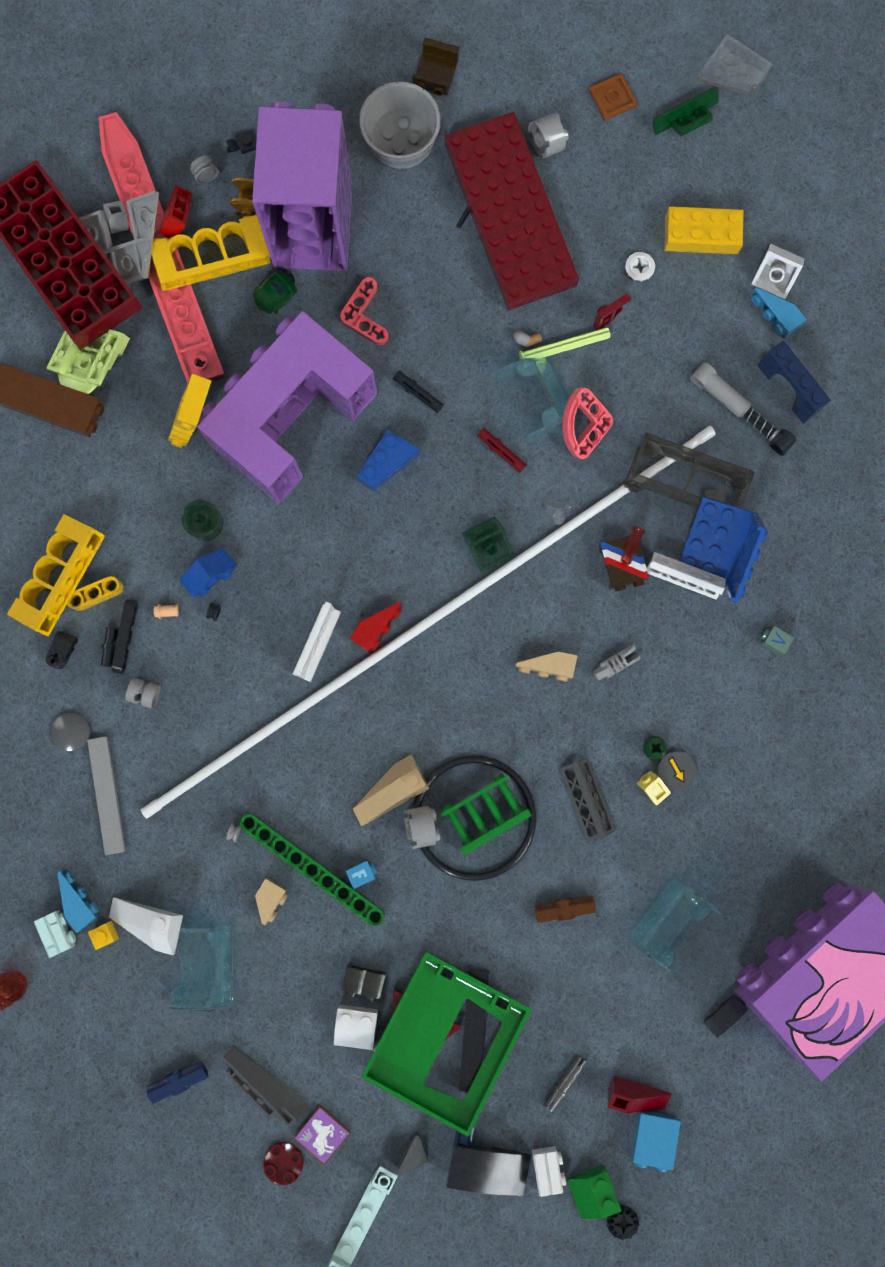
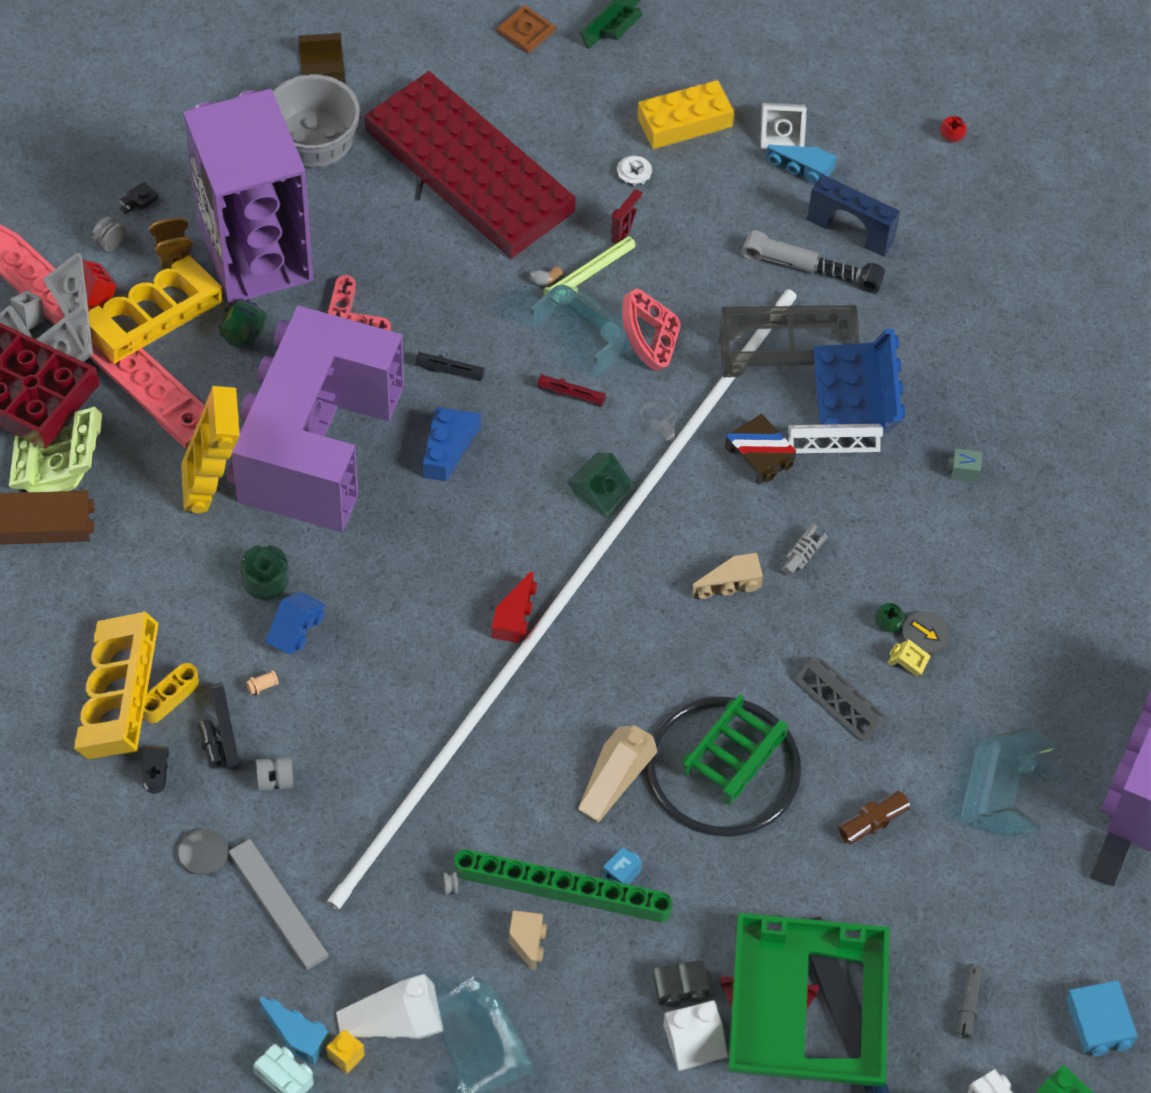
camera: 25 degrees left, 25 degrees down
(213, 611) = (319, 662): black bush -> none
(317, 642) = (454, 649): white fence -> none
(421, 827) = (668, 784): light grey brick -> none
(548, 135) = (474, 77): light grey brick -> none
(632, 545) = (761, 422): clear red axle -> none
(635, 1097) = (1056, 979): dark red slope -> none

